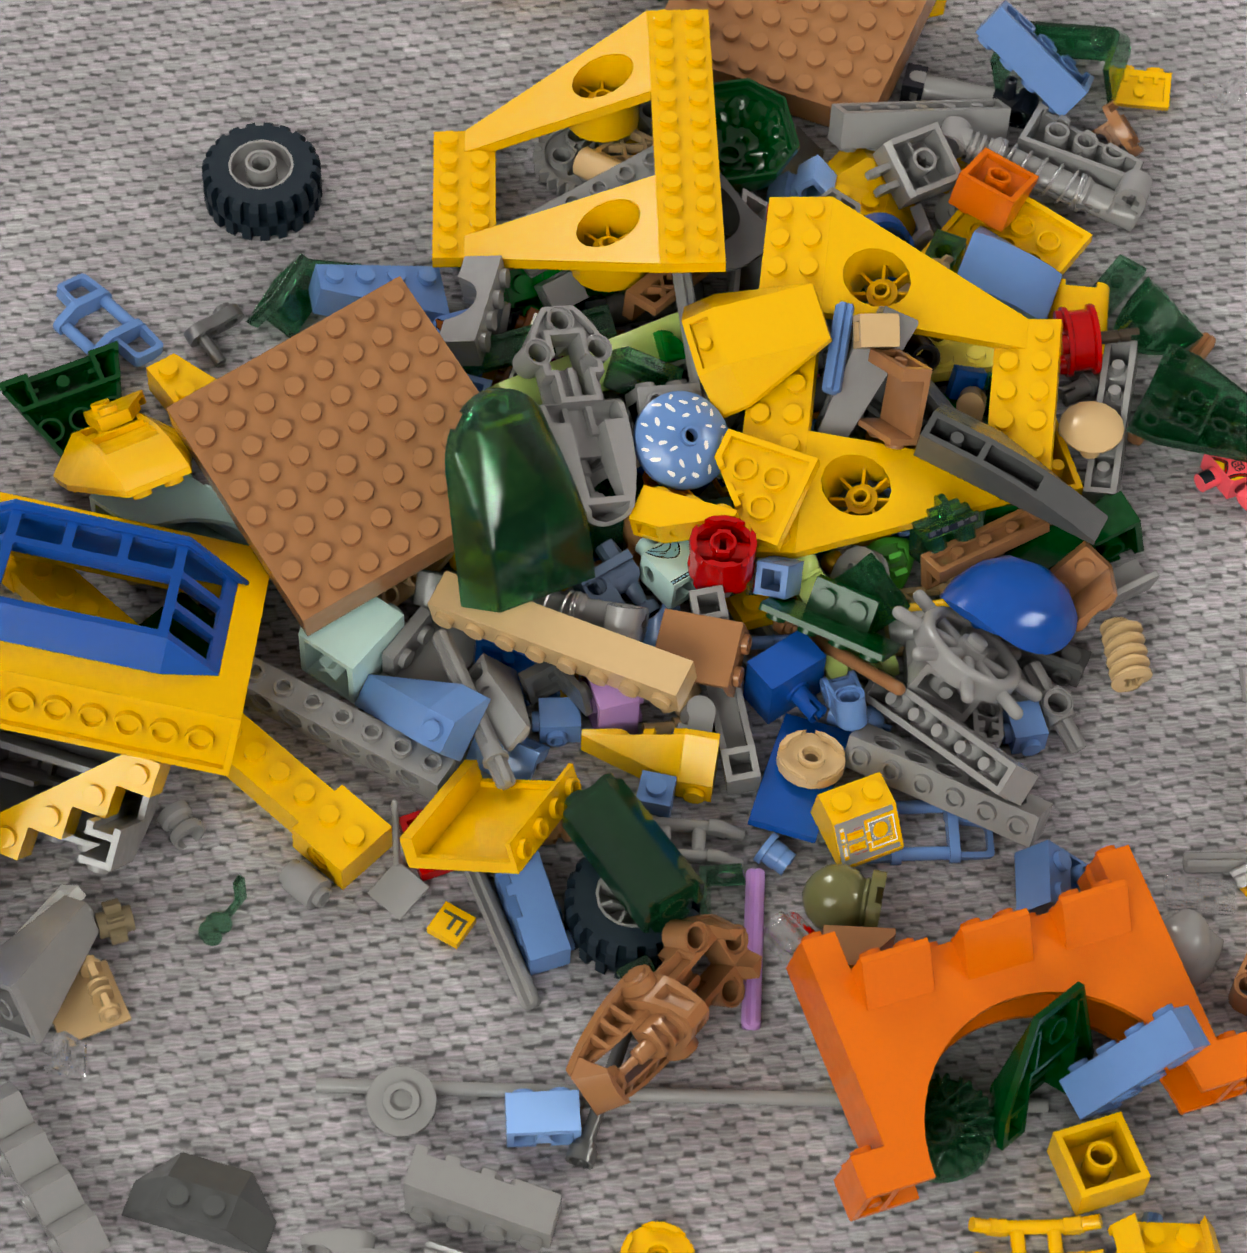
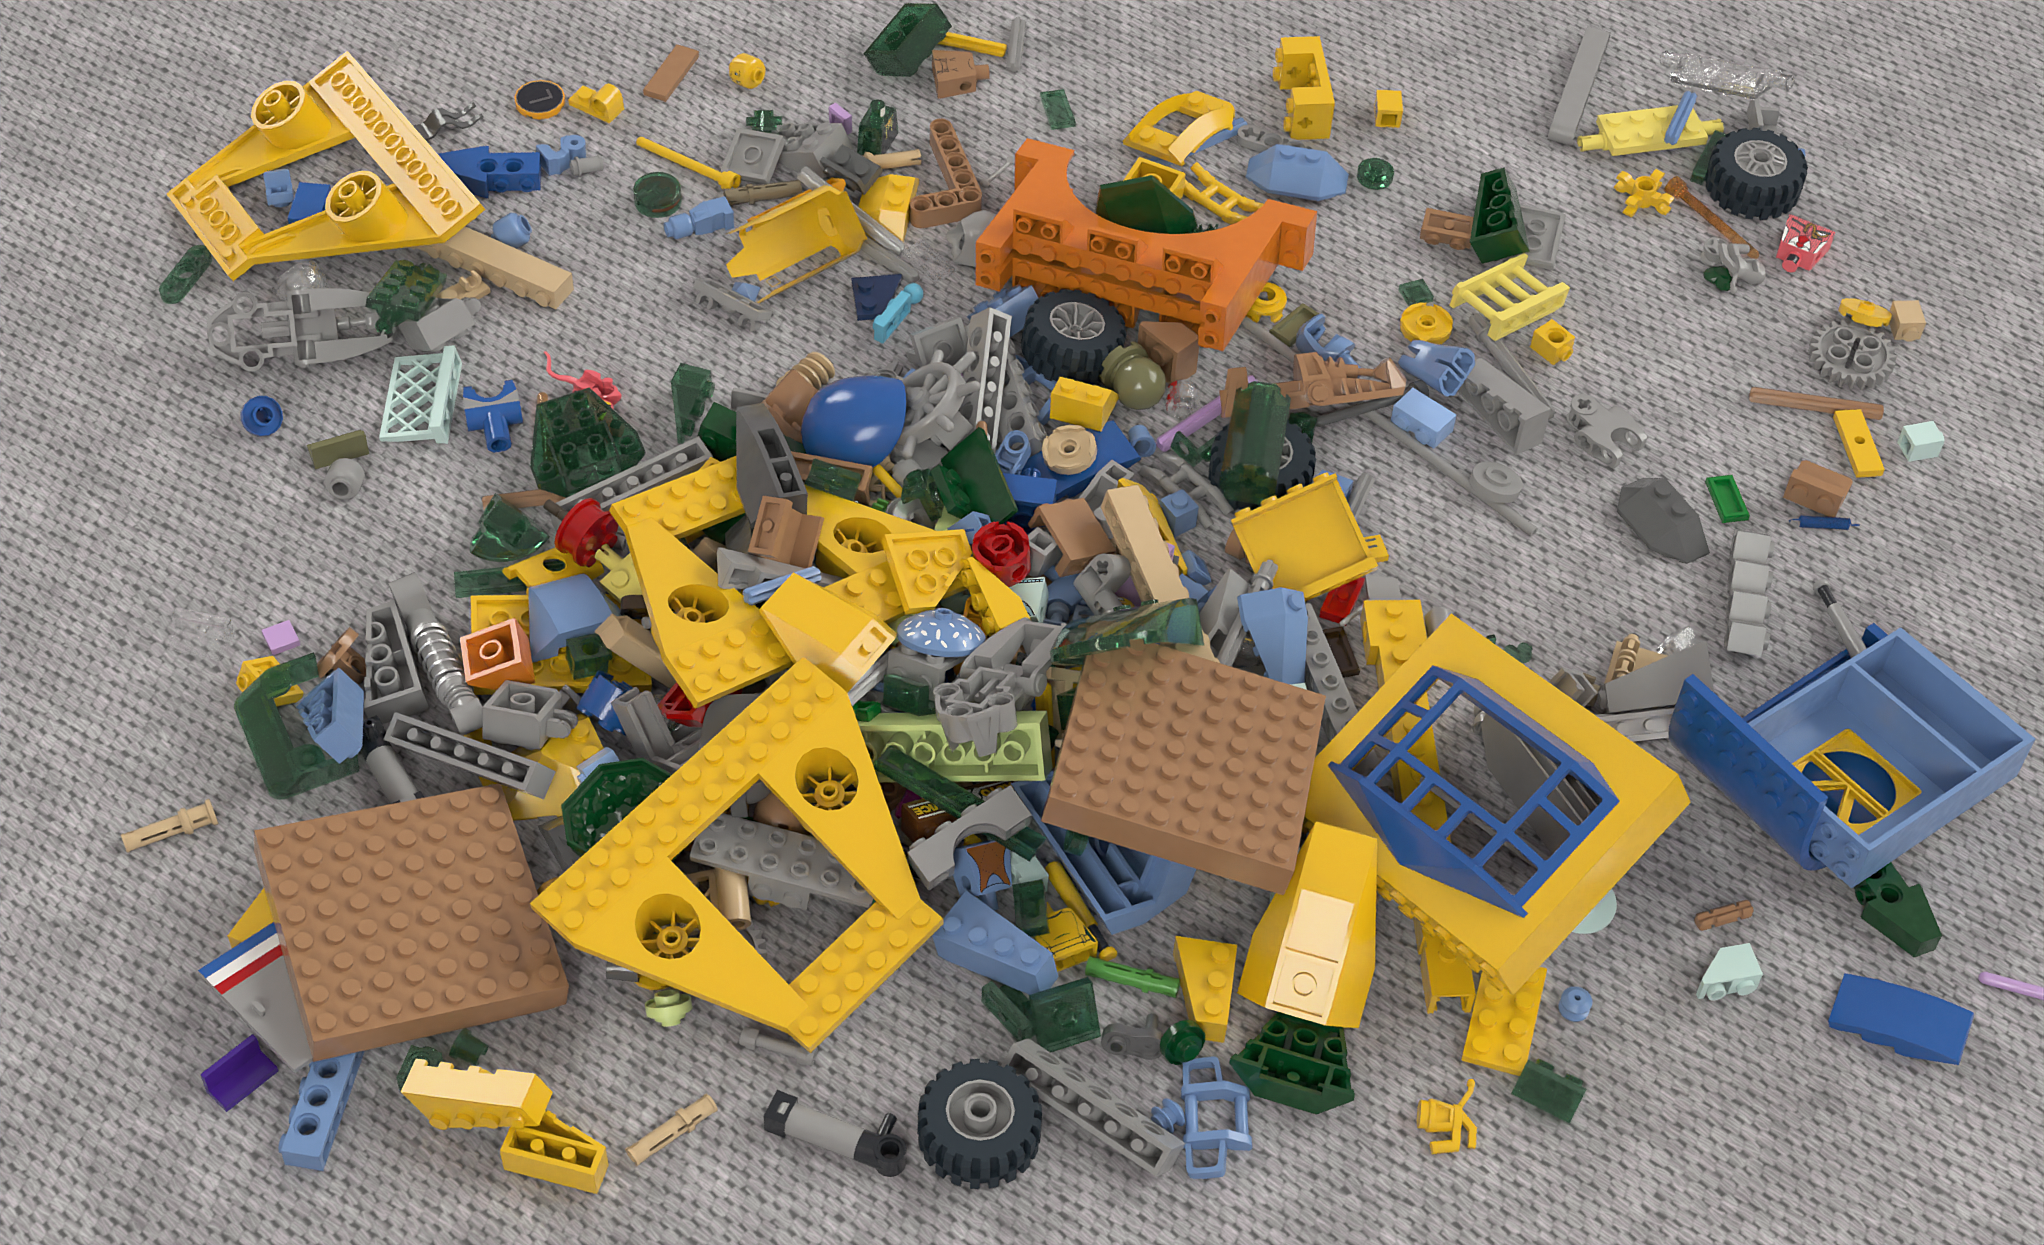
camera: 135 degrees left, 5 degrees down
(108, 415) = (1287, 998): yellow wing -> none
(113, 250) = (1095, 1108): none -> light grey brick
(135, 295) = (1168, 1115): none -> medium blue wheel
(171, 340) = (1182, 1042): none -> dark green plate
(325, 123) = (789, 1118): none -> piece
(378, 788) = (1342, 651): none -> dark brown tile
(472, 49) = (682, 1122): none -> tan pin
(574, 1178) = (1439, 365): none -> medium blue piece
(585, 759) = (1196, 568): none -> medium blue tile
(711, 1100) = (1310, 334): none -> medium blue piece
(784, 1140) = (1288, 327): none -> olive tile
(820, 1134) = (1273, 307): none -> yellow piece
(876, 330) = (763, 553): tan panel -> none
(946, 880) = (1071, 335): none -> black wheel
(1059, 779) = (944, 336): none -> light grey bracket
(1091, 428) = (657, 470): tan dish -> none
(1134, 1062) = (1086, 163): medium blue wedge -> none
(1148, 801) = (896, 311): none -> medium azure plate
(1187, 129) = (280, 637): none -> lavender tile
(1194, 809) = (873, 294): none -> dark blue wing
(1205, 561) = (689, 391): none -> clear green slope

